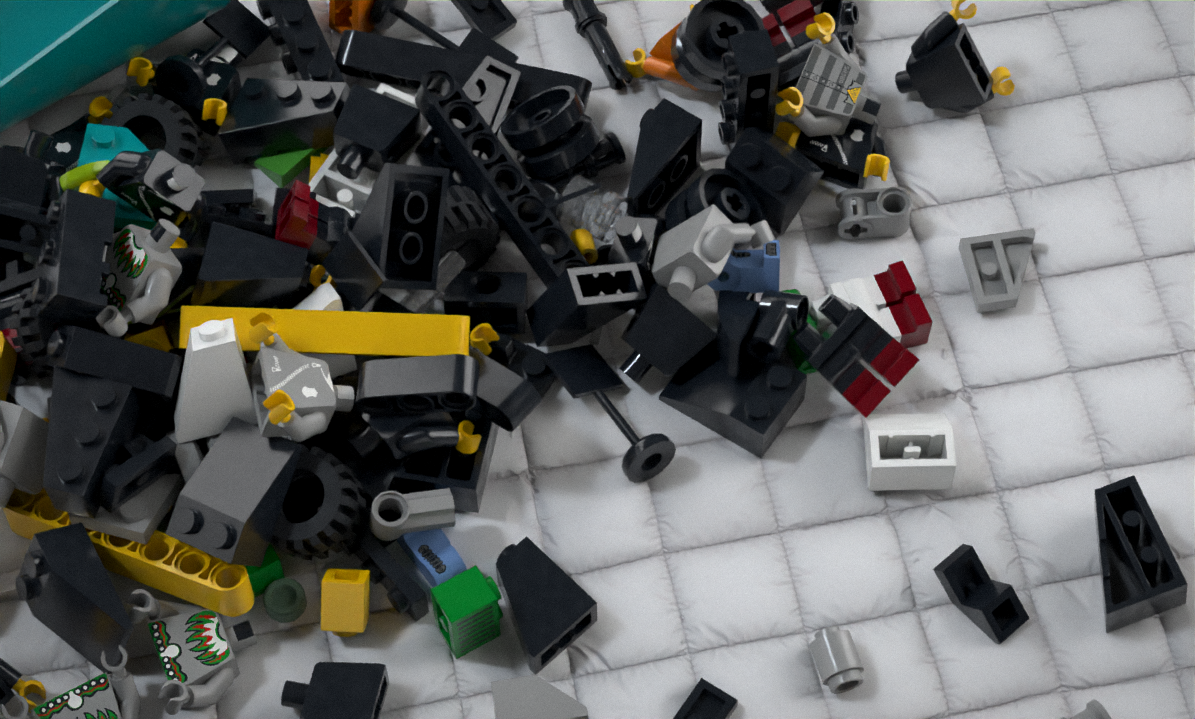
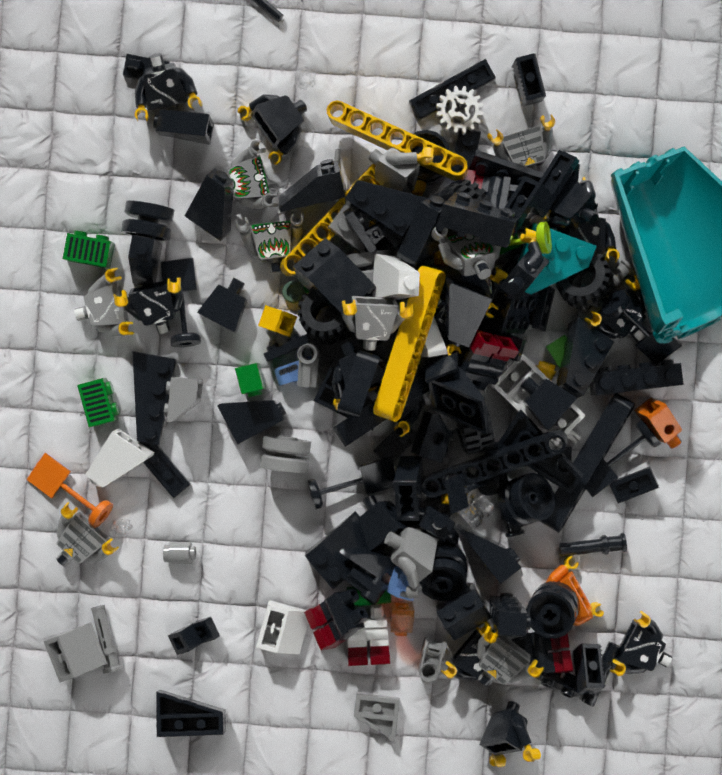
camera: 100 degrees right, 30 degrees up
(584, 516) = (285, 454): none -> light grey wheel
(816, 264) = (401, 618): none -> clear orange slope

